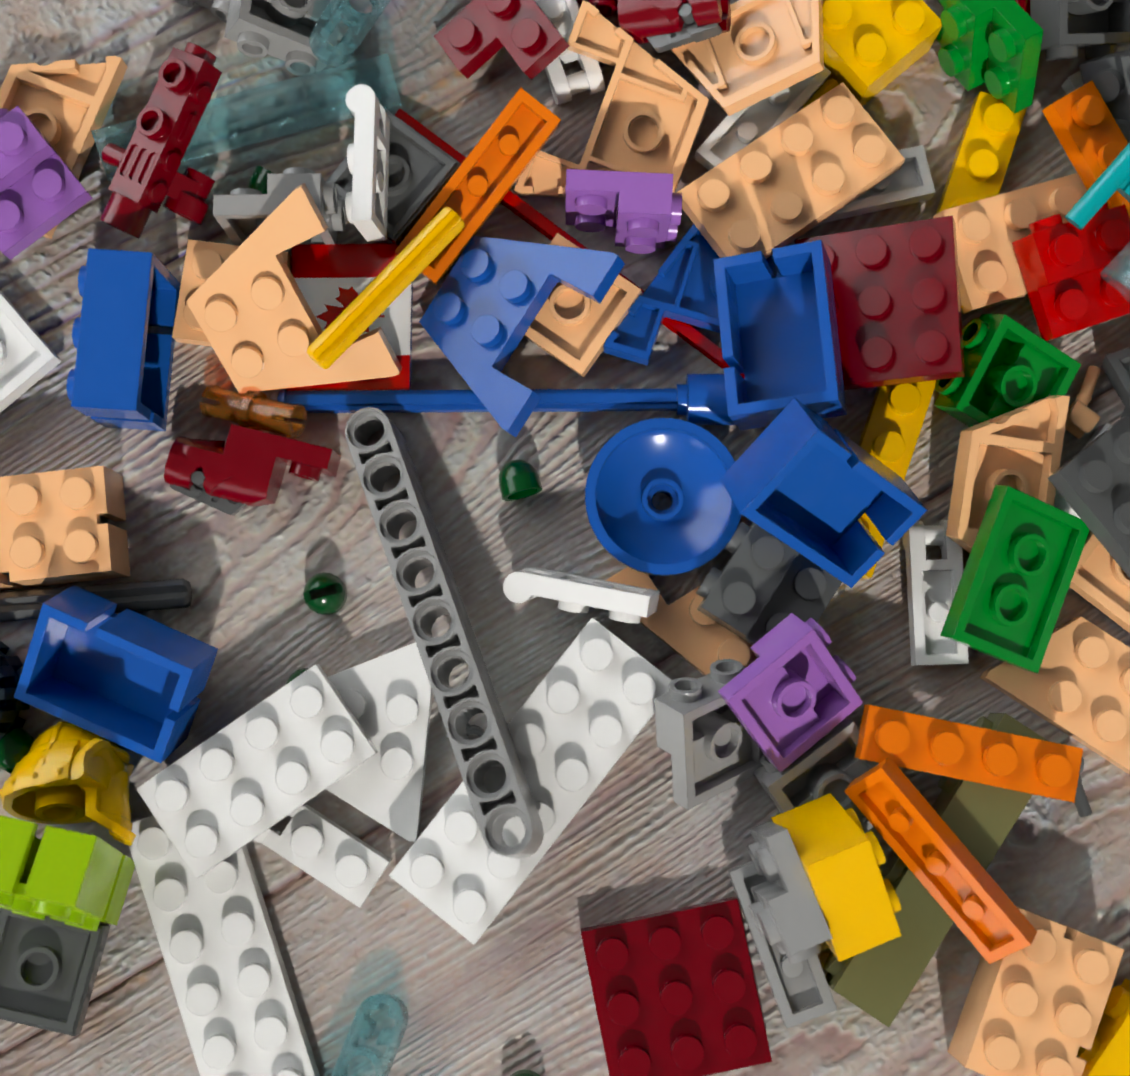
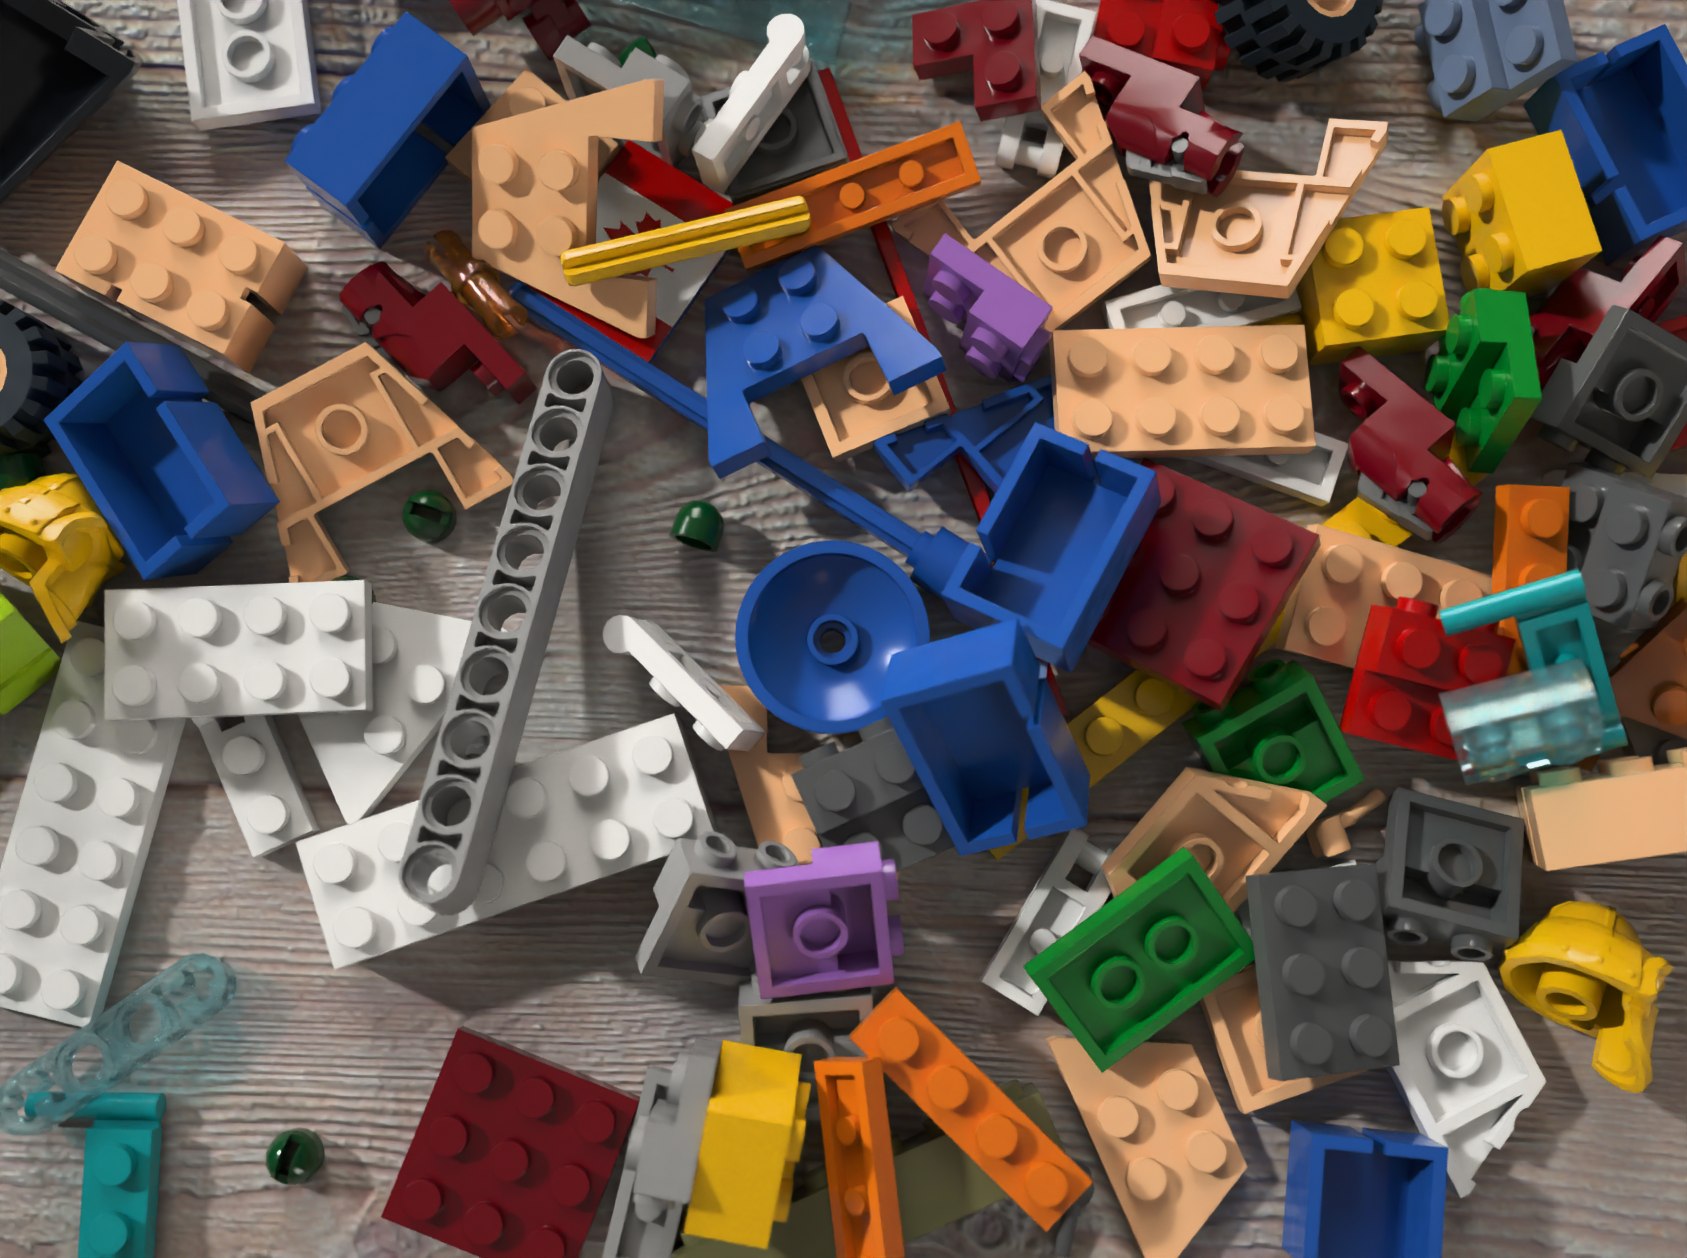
camera: 30 degrees right, 0 degrees up
(231, 572) = (346, 431): none -> light nougat wing
(963, 125) = (1403, 451): none -> dark red plate

